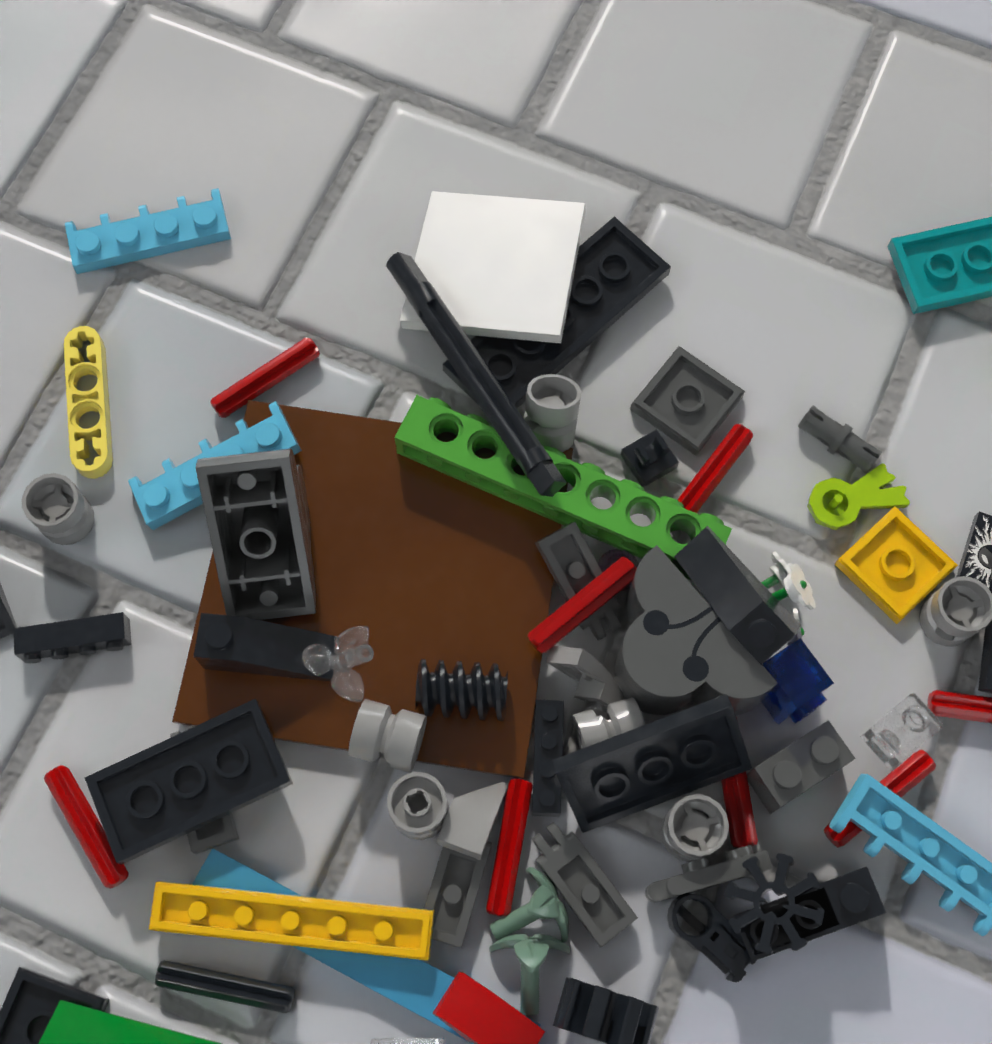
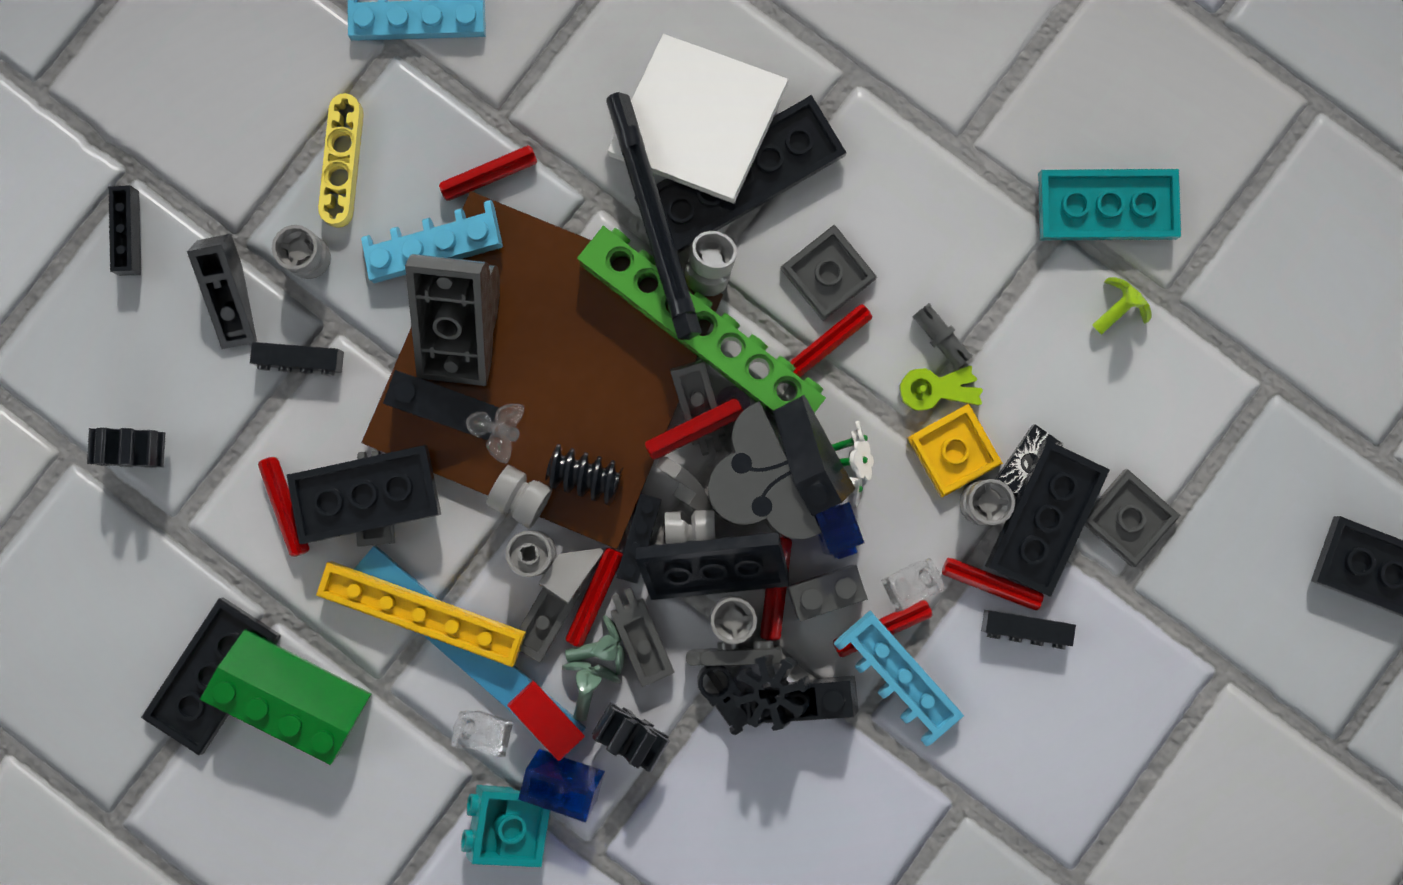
camera: 15 degrees right, 15 degrees up
(225, 986) = (364, 647): black axle -> none
(649, 458) = (783, 315): black tile -> none

